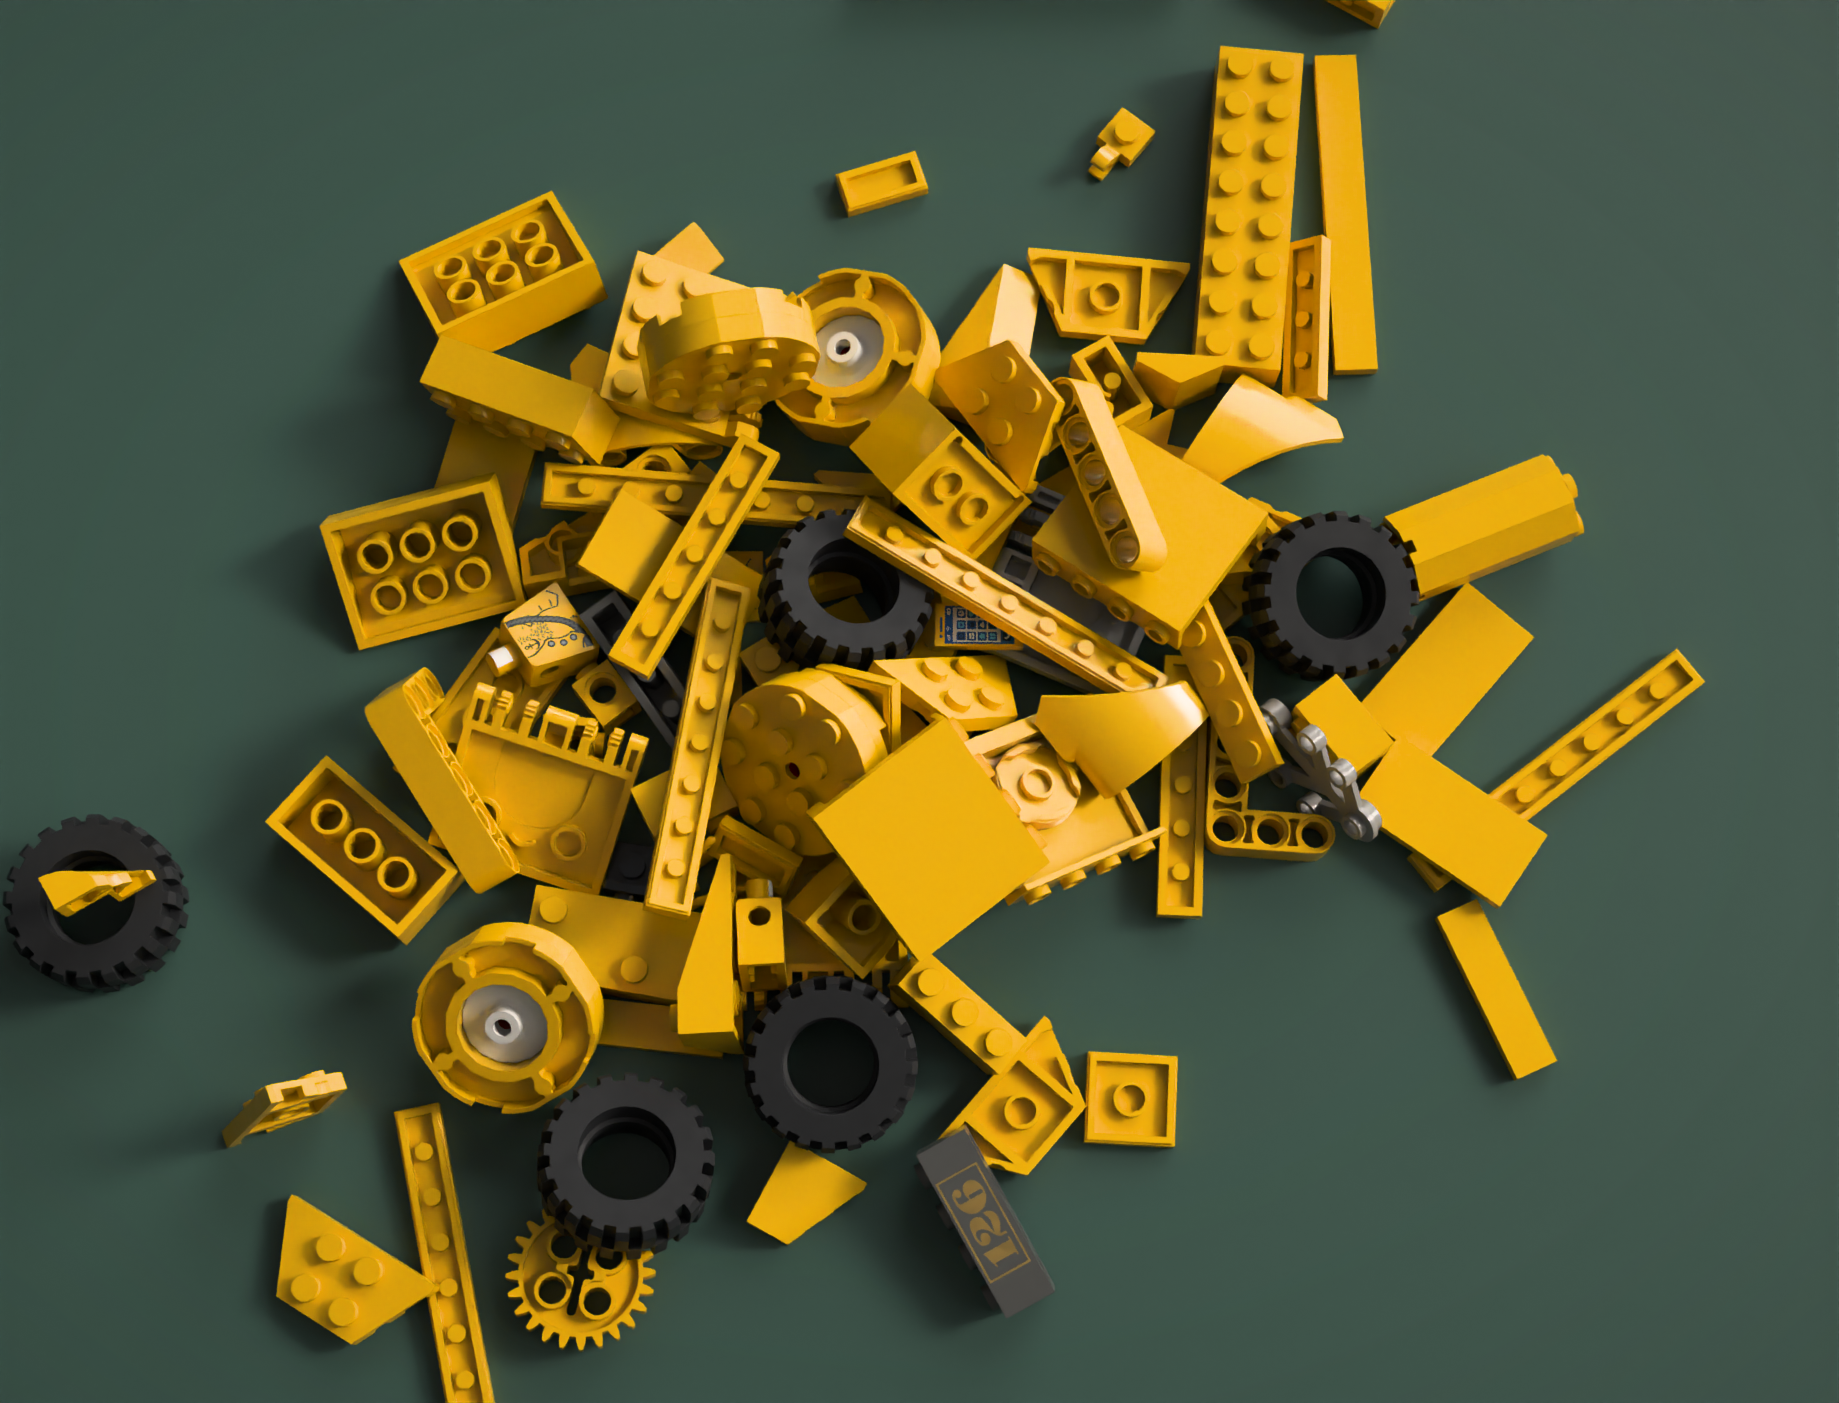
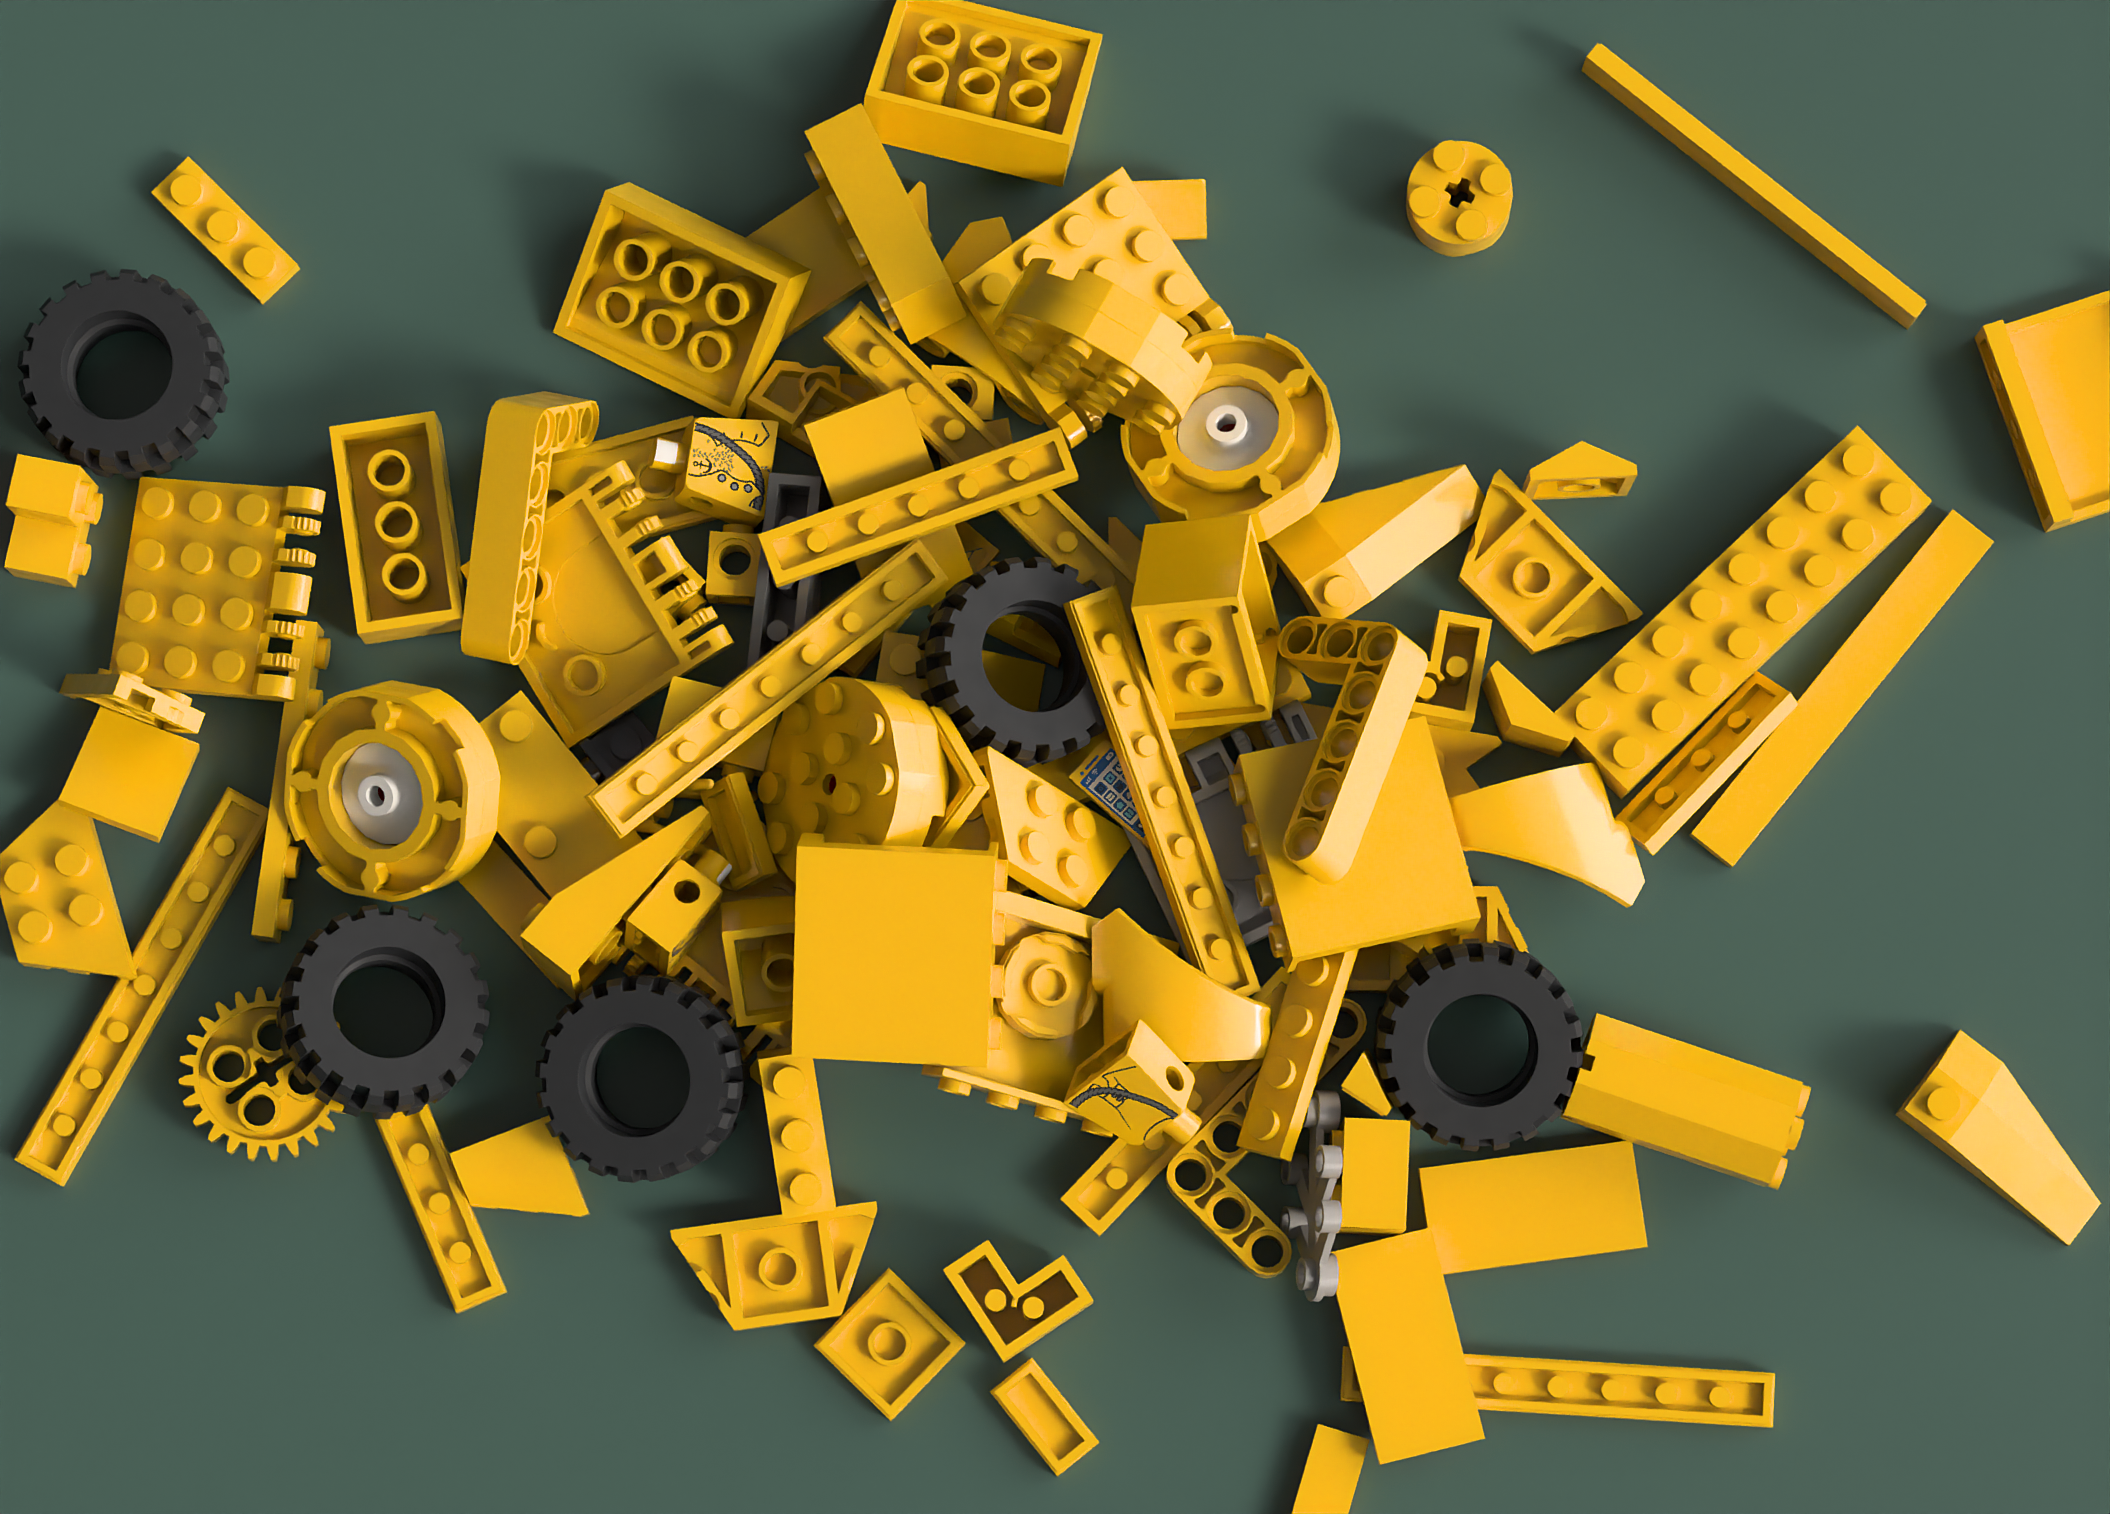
camera: 45 degrees right, 5 degrees up
(77, 889) = (105, 356): yellow slope -> none
(86, 761) = (225, 230): none -> yellow plate
(123, 1030) = (52, 520): none -> yellow brick
(270, 989) = (208, 584): none -> yellow hinge
(320, 1159) = (129, 774): none -> yellow tile
(468, 1127) = (280, 856): none -> yellow plate
(770, 1263) = (442, 1208): none -> yellow tile
(856, 87) = (1445, 172): none -> yellow brick
(881, 184) = (1420, 287): yellow tile -> none
(985, 1222) = (657, 1337): dark grey brick -> none
(1006, 406) = (1325, 610): yellow wing -> none
(1083, 206) = (1580, 473): none -> yellow slope
(1120, 141) = (1689, 437): yellow plate -> none
(1148, 800) = (1135, 1088): none -> yellow torso
(1190, 1010) = (1014, 1313): none -> yellow brick
(1266, 1060) = (1044, 1417): none -> yellow tile
(1283, 678) = (1367, 1086): none -> yellow slope
(1666, 398) = (1991, 1128): none -> yellow wedge

